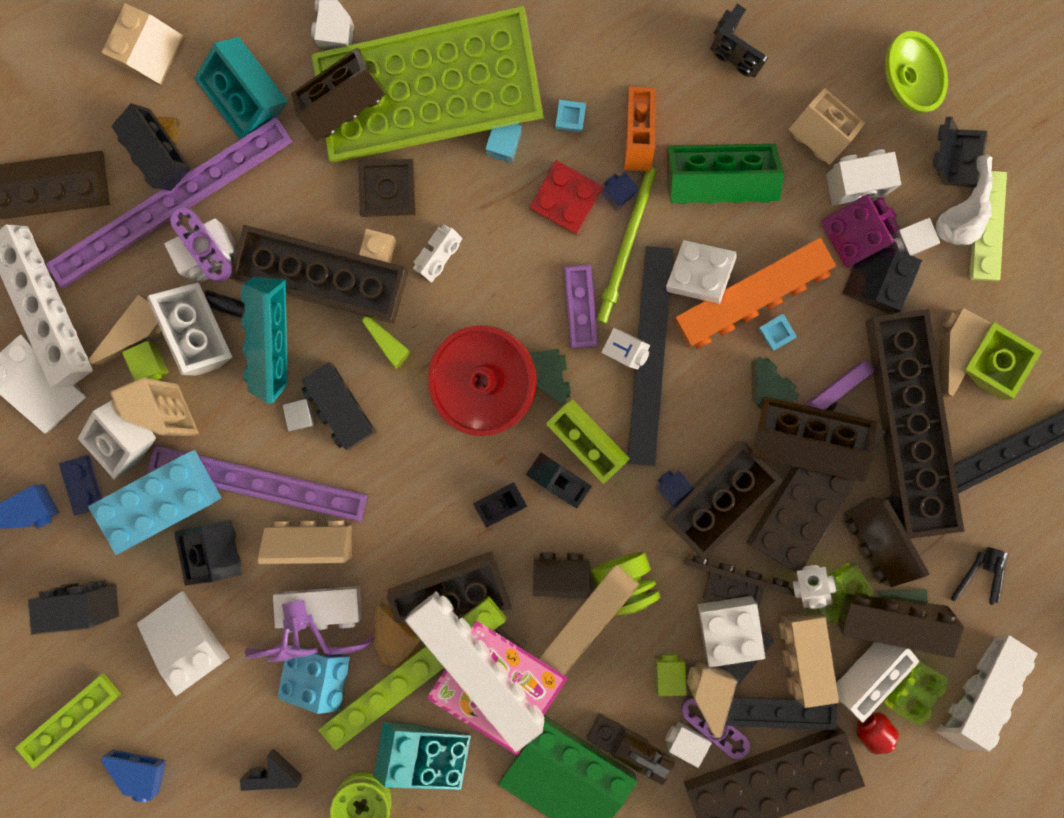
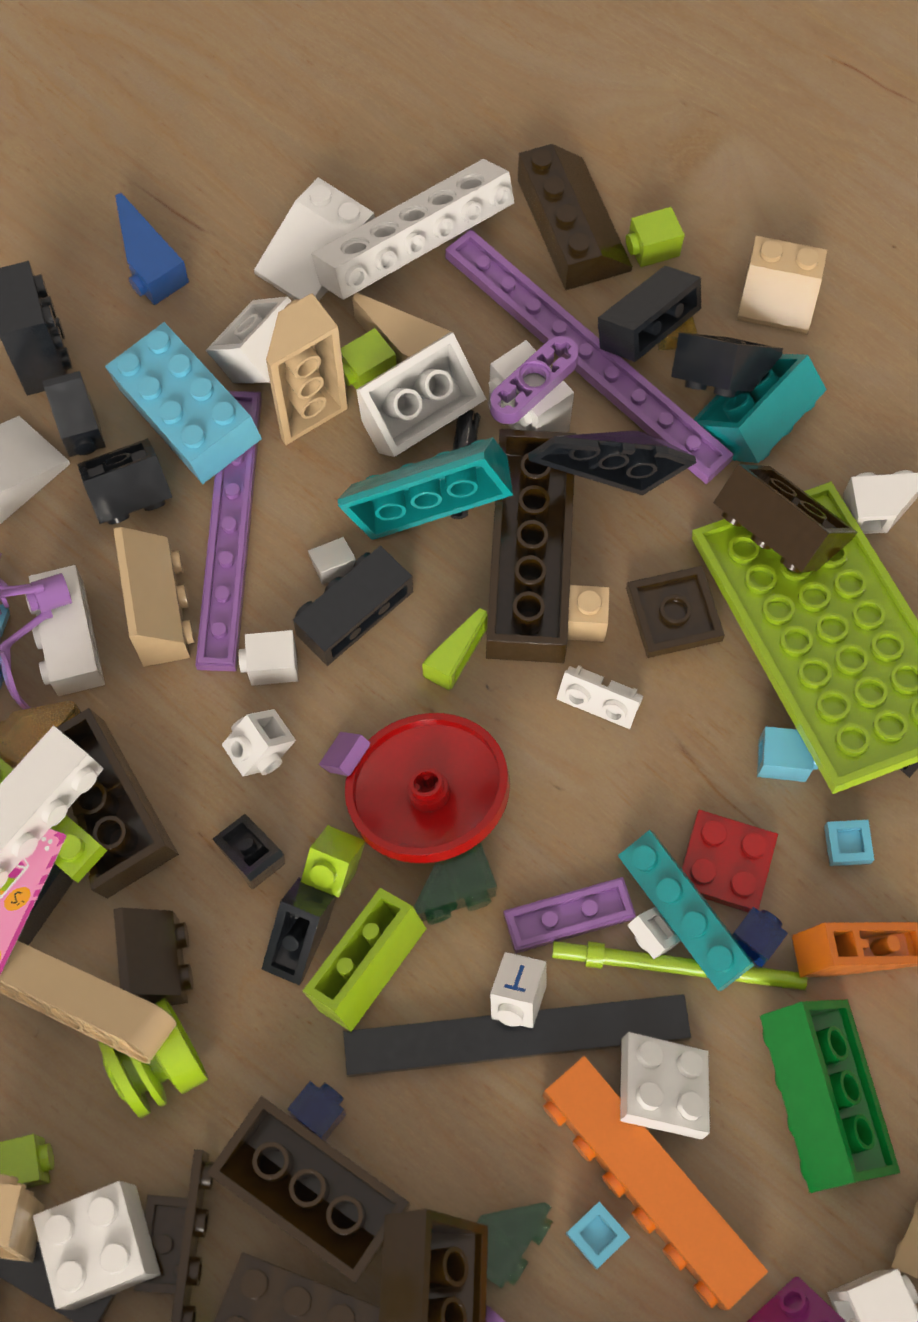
camera: 80 degrees right, 20 degrees down
(80, 483) = (197, 318): clear blue plate -> none
(81, 127) = (655, 237): none -> lime brick
(151, 581) = (74, 414): none -> black slope
(202, 104) = (722, 363): none -> black slope
(270, 193) = (615, 458): none -> black wedge
(366, 470) = (269, 658): none -> white brick
(428, 492) = (258, 743): none -> white brick
(445, 431) = (344, 753): none -> medium lavender tile
(519, 451) = (332, 861): none -> lime brick
(594, 232) = (686, 911): none -> teal plate
(604, 254) = (653, 933): none -> white plate

